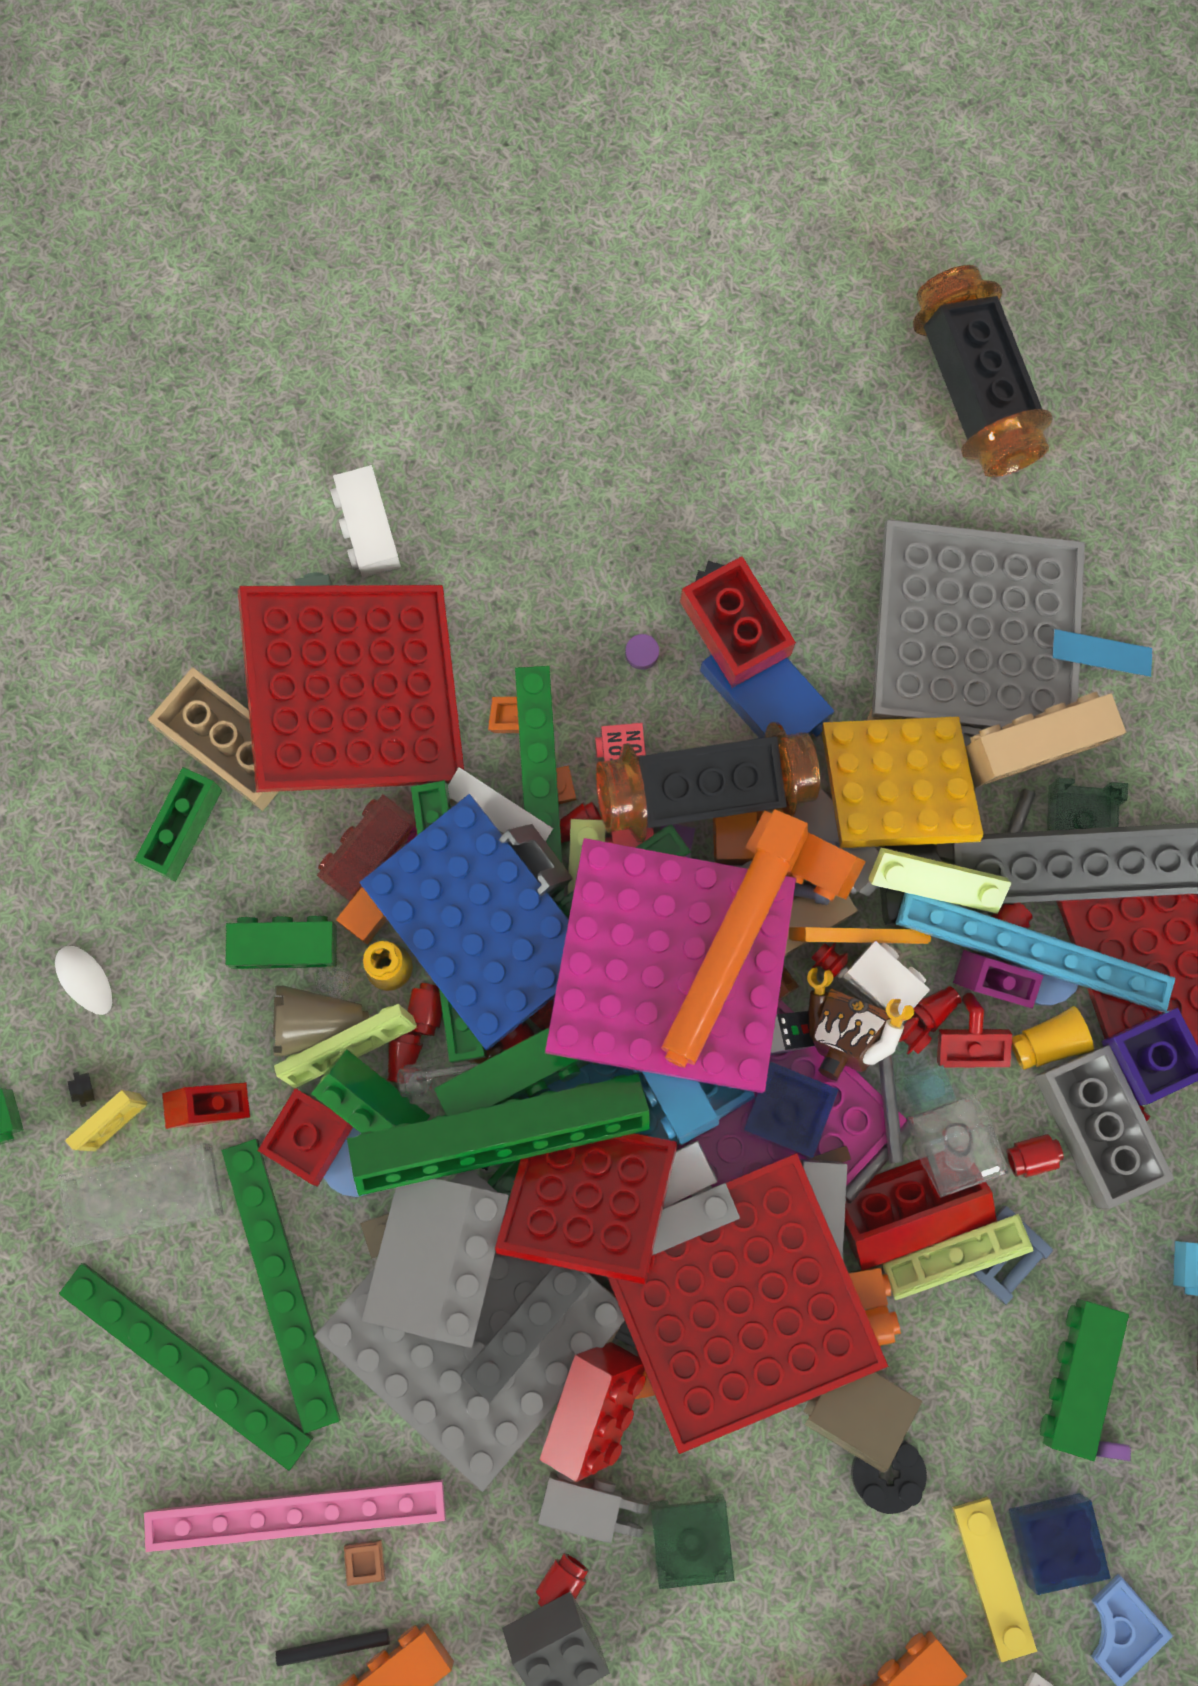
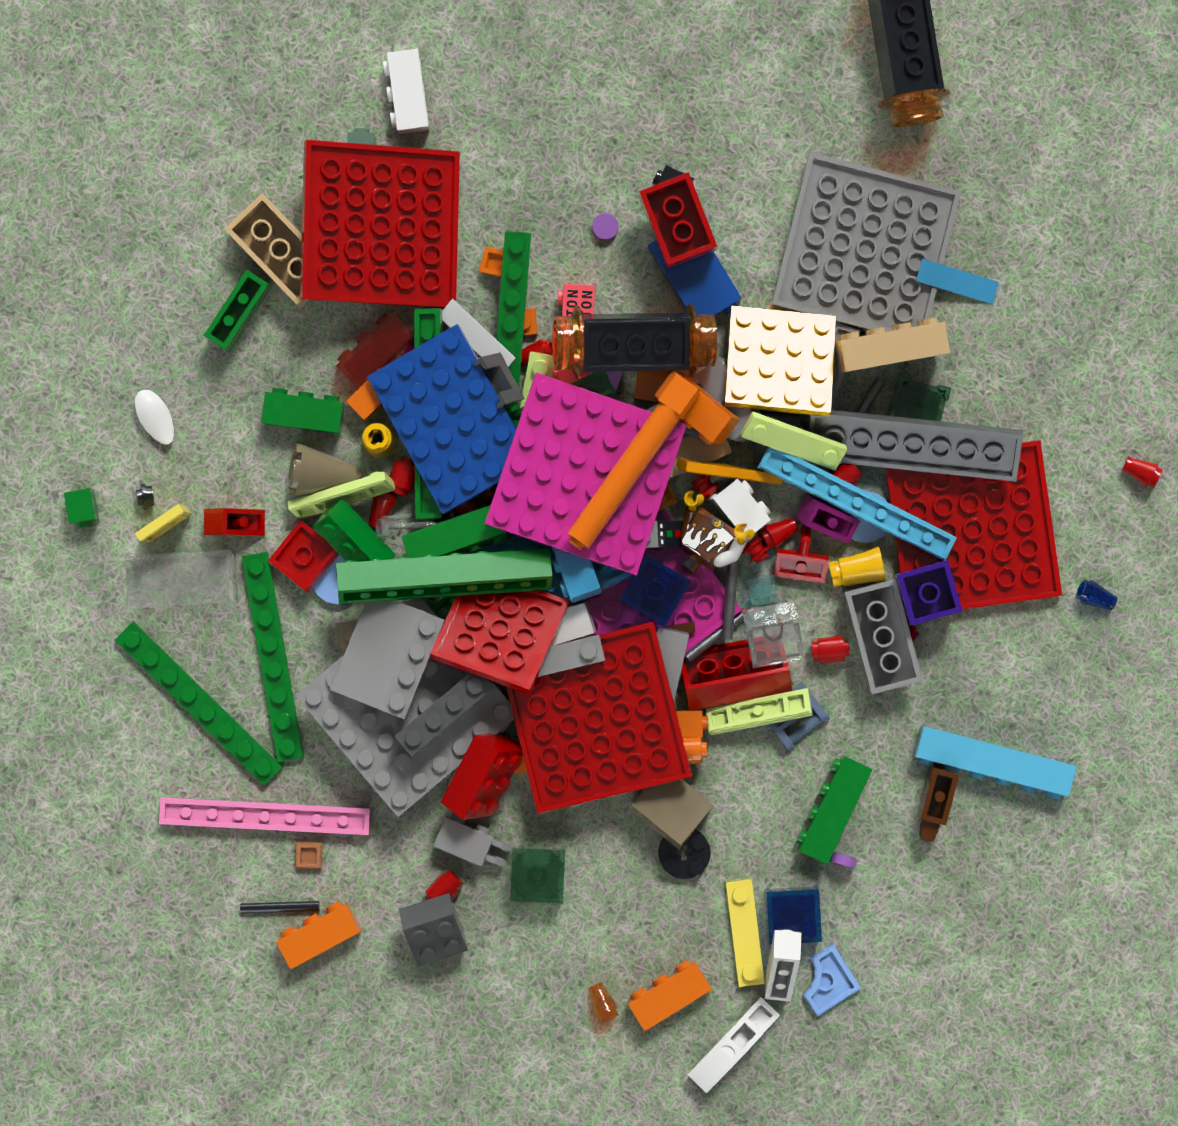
camera: 10 degrees right, 10 degrees up
(1065, 1624) = (783, 965): none -> white brick

